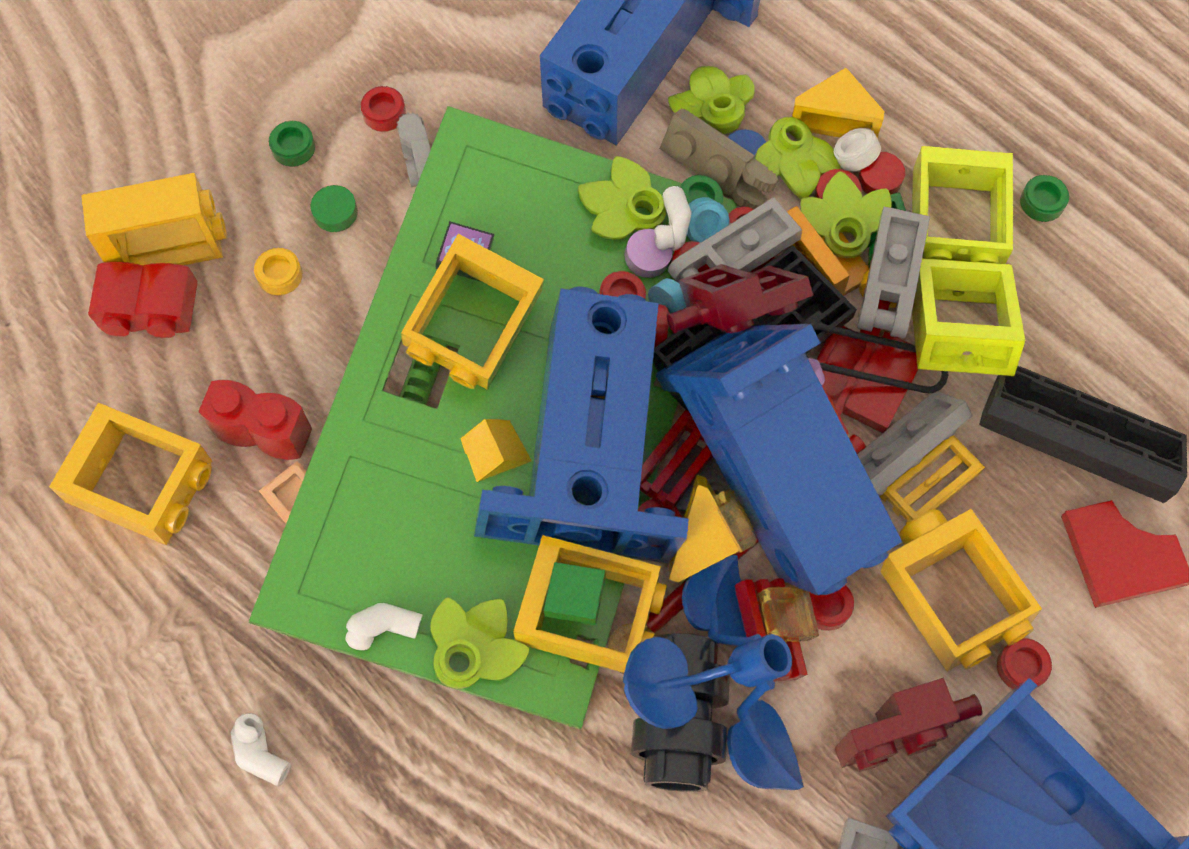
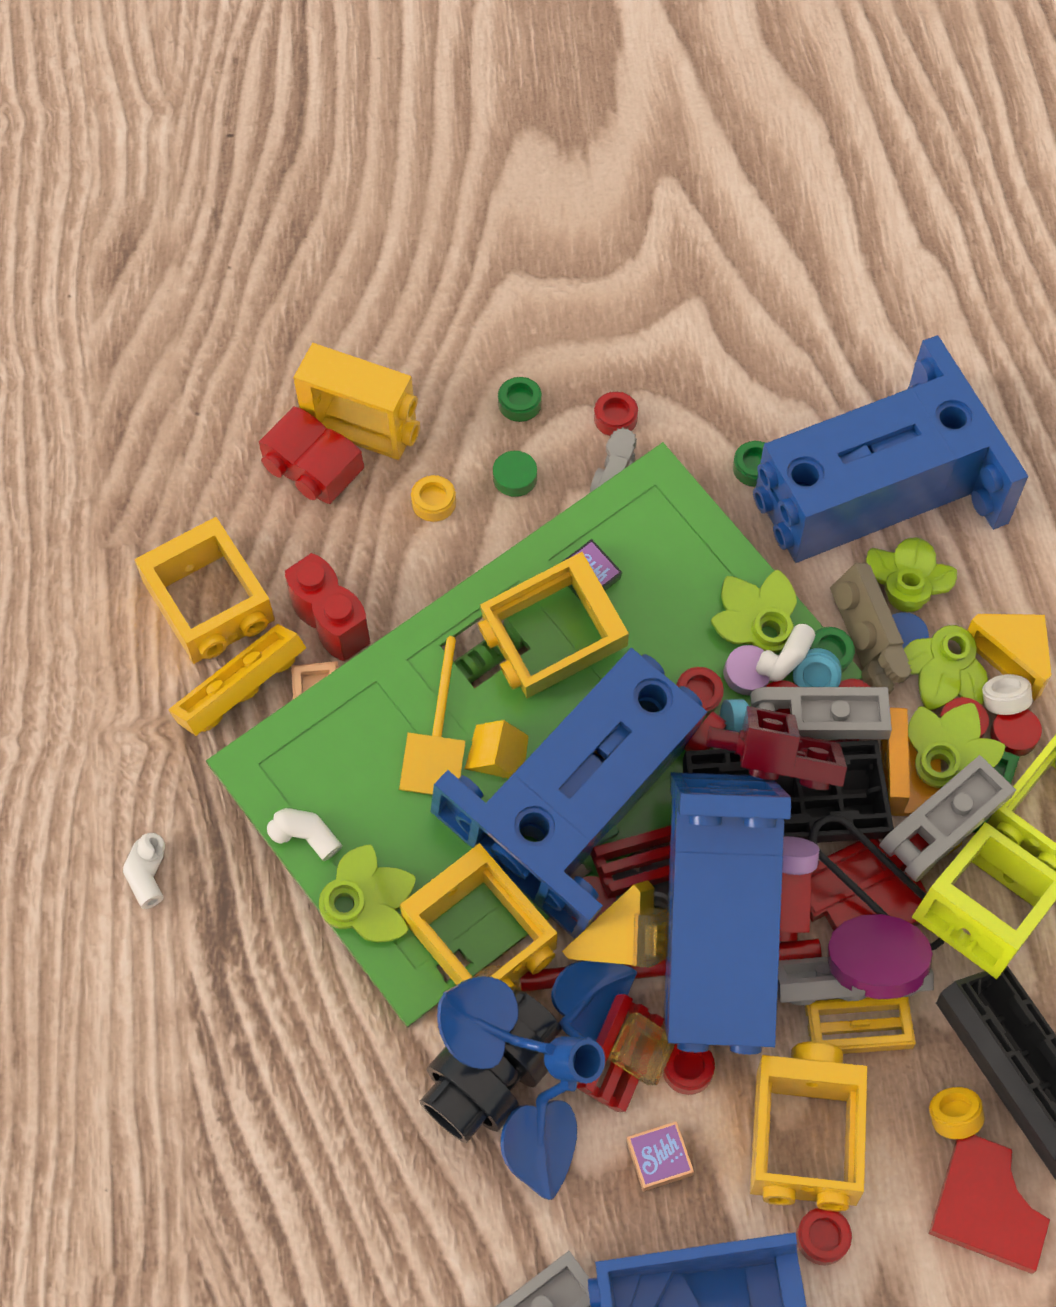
camera: 35 degrees right, 5 degrees down
(220, 533) = (237, 680): none -> yellow plate
(446, 493) = (431, 756): none -> yellow piece
(525, 83) = (746, 462): none -> green tile
(575, 593) = (469, 906): green tile -> none
(858, 691) = (659, 1156): none -> tile
(907, 720) = (678, 1208): dark red plate -> none
(918, 415) = (879, 956): none -> magenta tile
(1053, 499) = (957, 1113): none -> yellow tile

